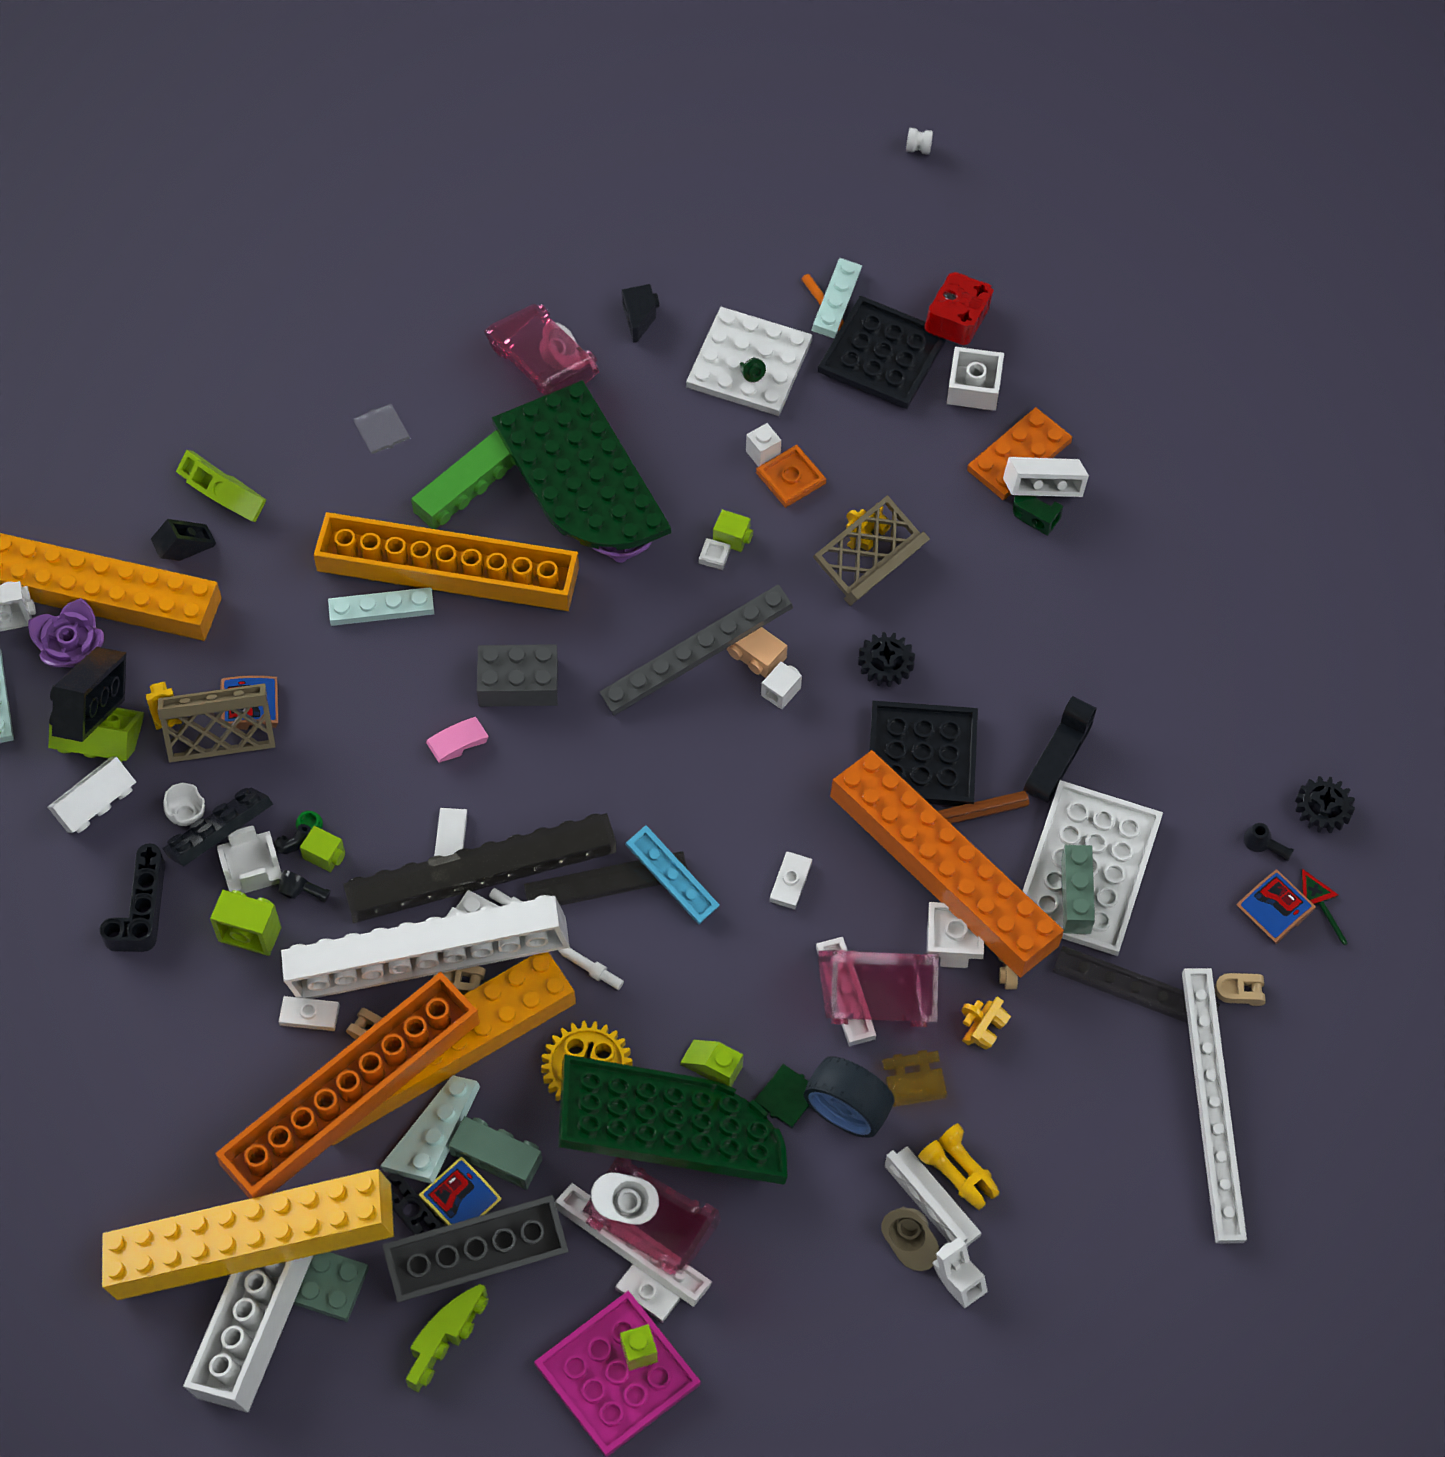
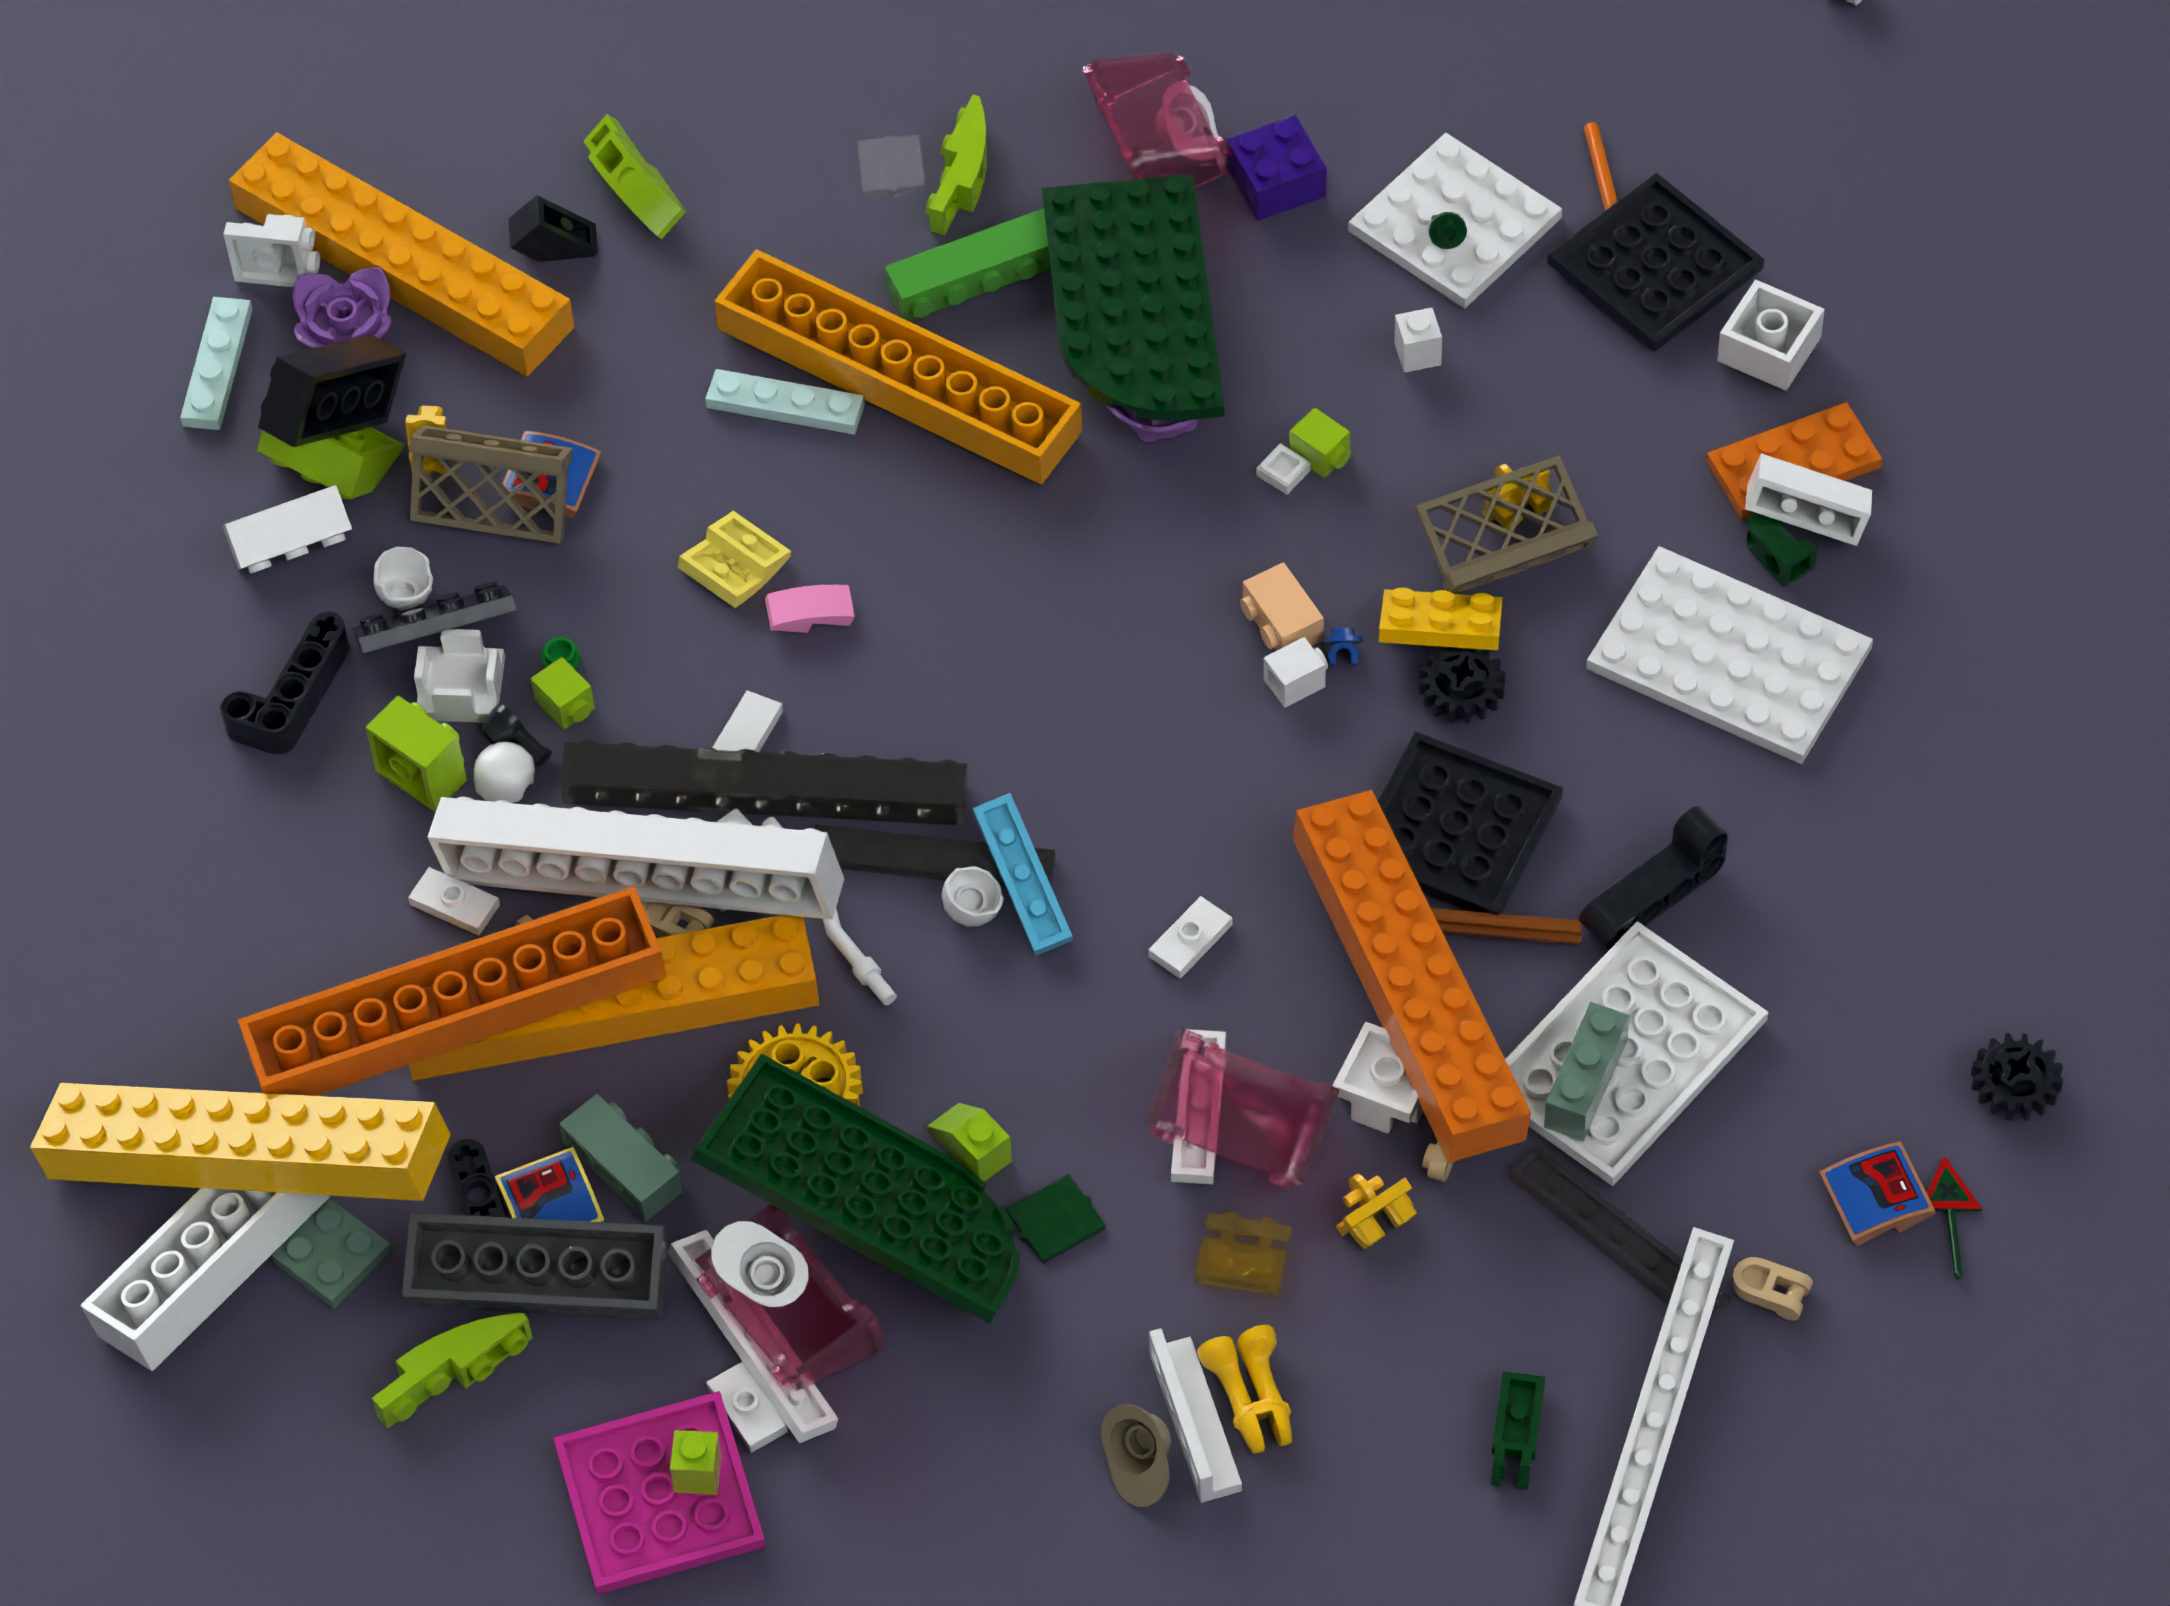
camera: 25 degrees right, 5 degrees down
(287, 846) = (519, 676): black arm -> none
(305, 915) = (503, 772): none -> white hair
(393, 722) = (734, 559): none -> light yellow slope
(426, 1143) = (531, 1118): light aqua wing -> none
(429, 415) = (964, 167): none -> lime slope
(517, 675) = (929, 547): dark grey brick -> none
(628, 359) = (1276, 167): none -> dark purple brick
(640, 309) = (1327, 102): black slope -> none
(645, 900) = (971, 896): none -> white hair
(696, 649) = (1192, 585): dark grey plate -> none
(791, 476) = (1442, 394): orange tile -> none
(800, 655) = (1343, 640): none -> blue plate
(836, 298) = (1620, 167): light aqua plate -> none
(849, 1096) = (1130, 1238): black wheel -> none
(856, 622) = (1440, 619): none -> yellow plate
(959, 308) = (1792, 230): red axle -> none
(959, 1273) = (1183, 1520): white brick -> none
(1036, 589) = (1729, 654): none -> white plate
(1131, 1134) = (1517, 1424): none -> dark green hinge
(1262, 842) = (1904, 1100): black bar -> none

